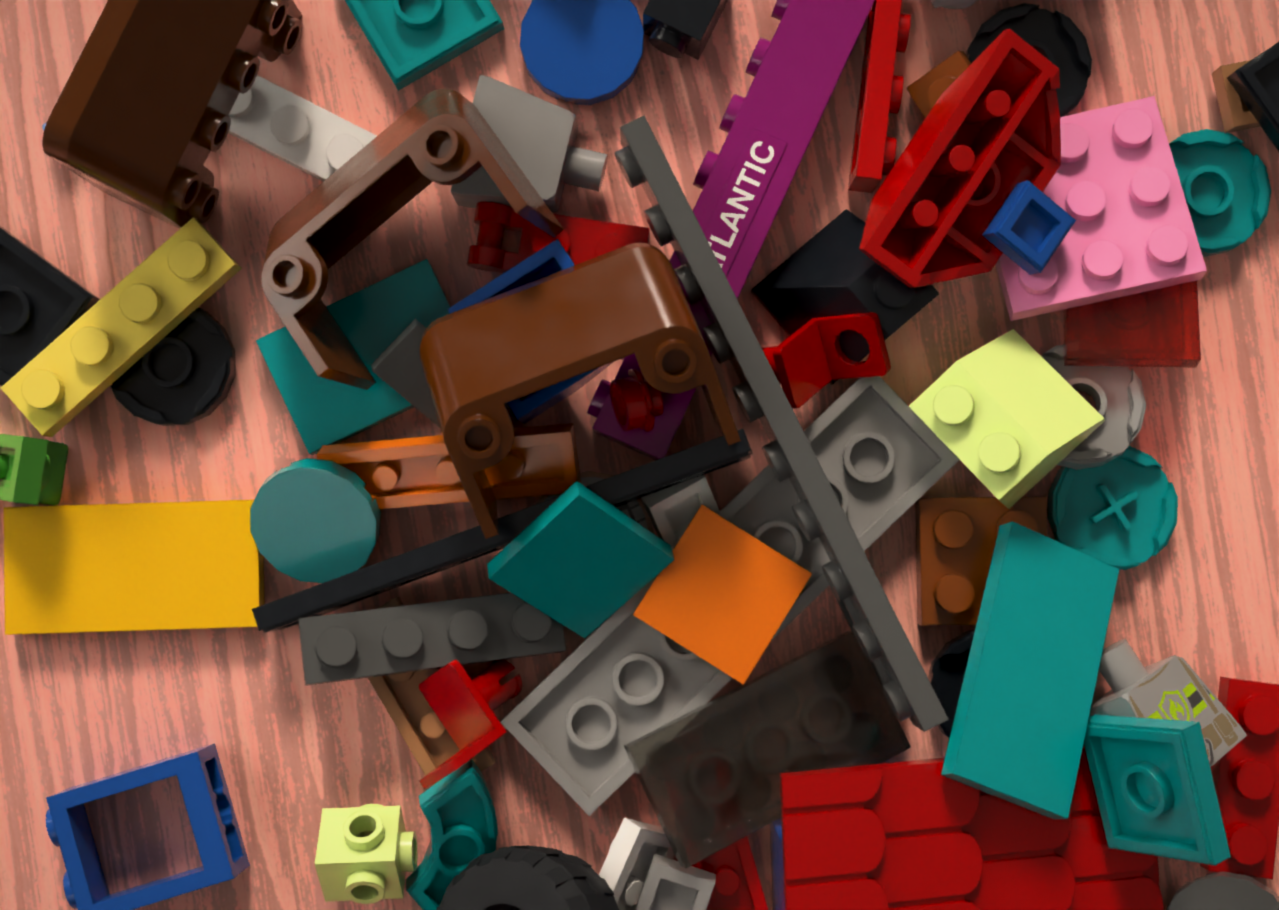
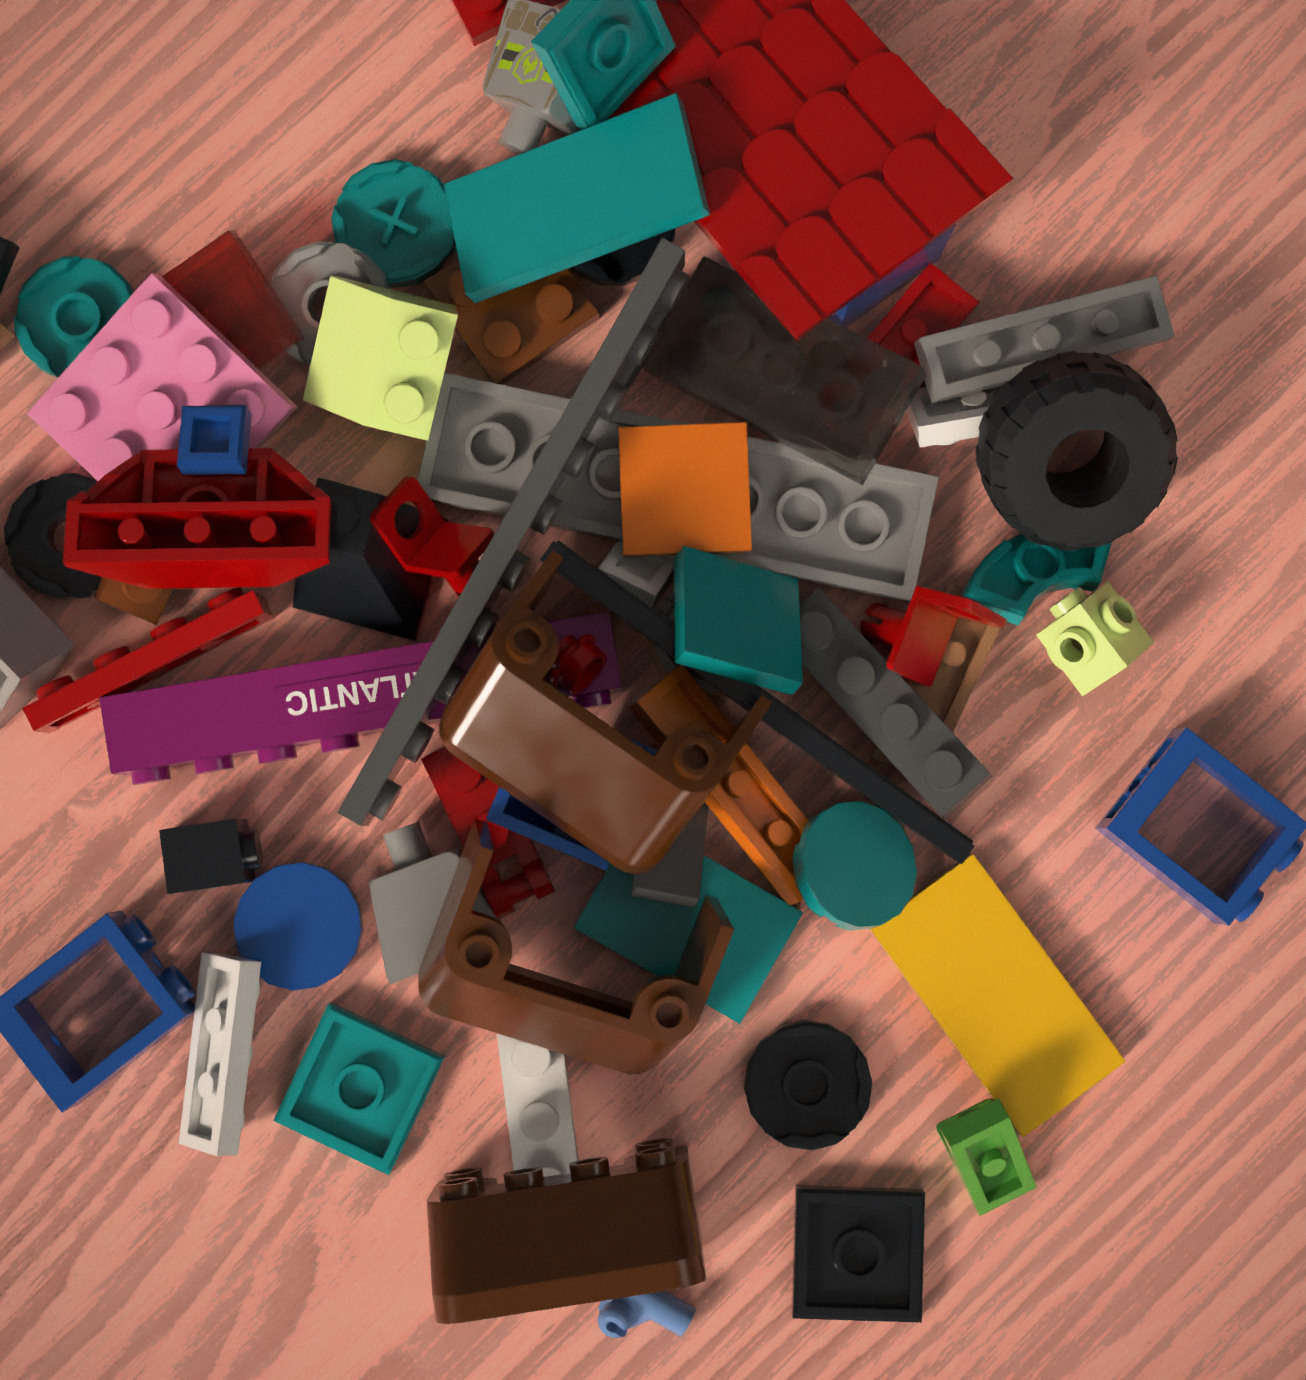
camera: 125 degrees left, 0 degrees up
(120, 328) = (806, 1142): light yellow plate -> none

